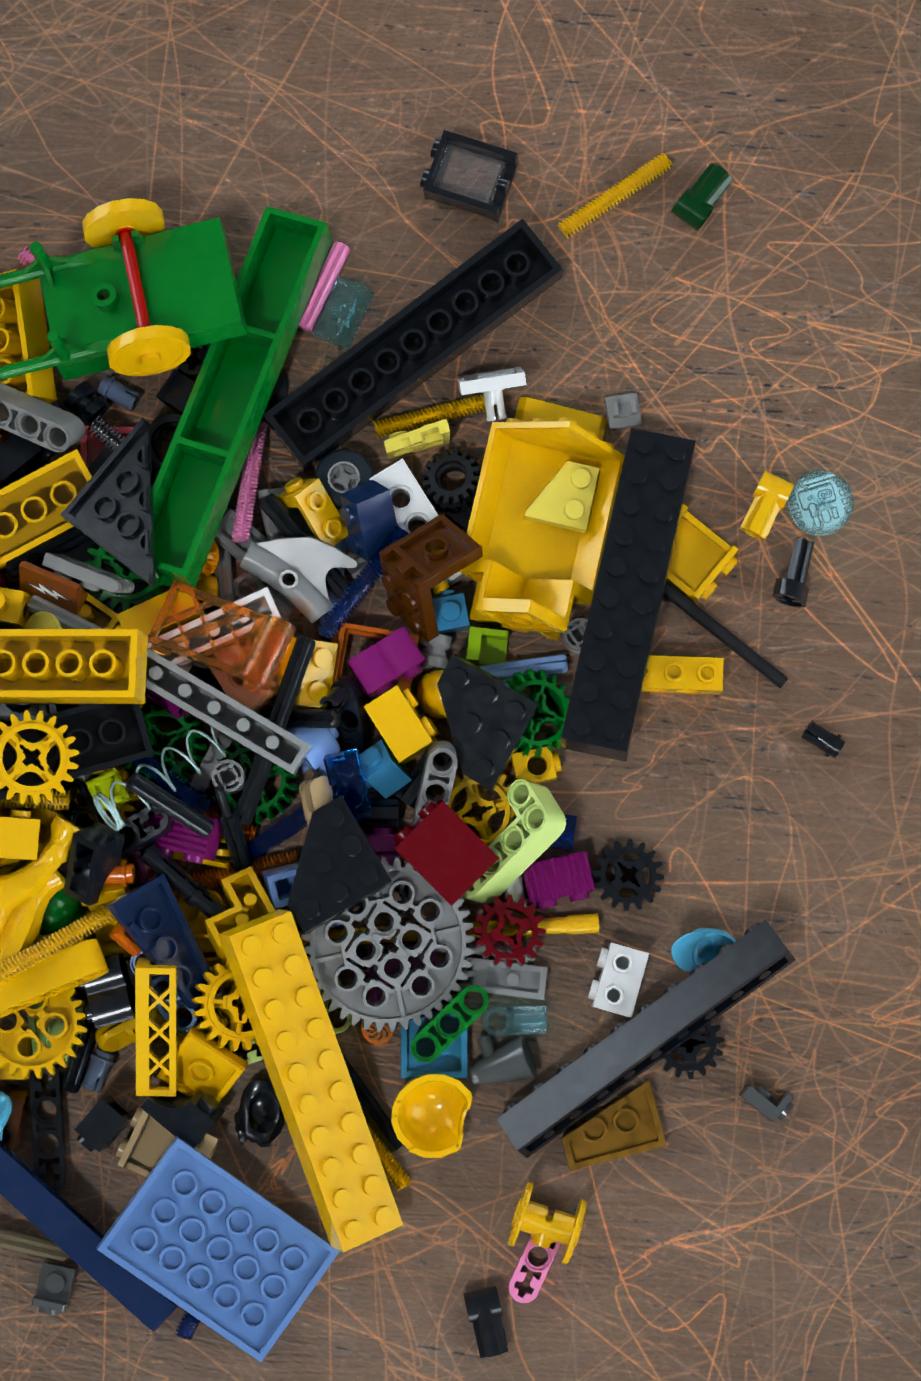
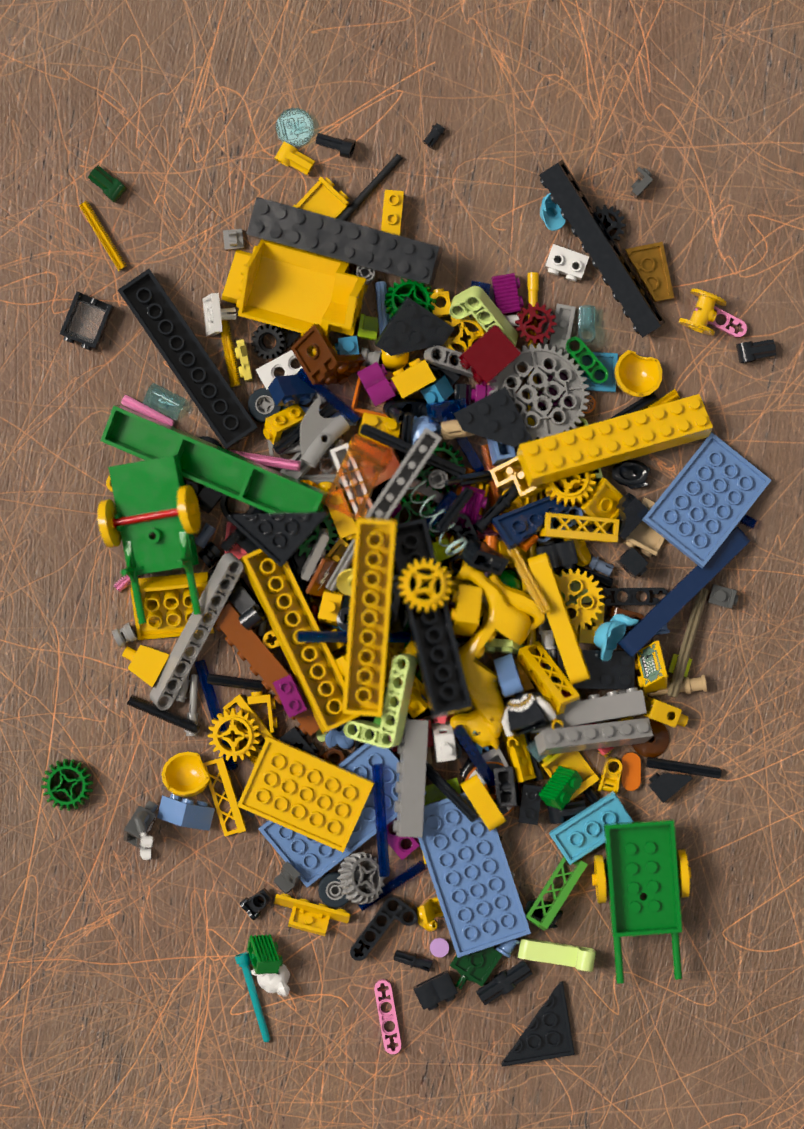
camera: 85 degrees left, 5 degrees up
(505, 1064) = (611, 331): dark grey piece -> none
(566, 498) = (284, 274): light yellow wing -> none
(638, 865) = (514, 264): black gear -> none

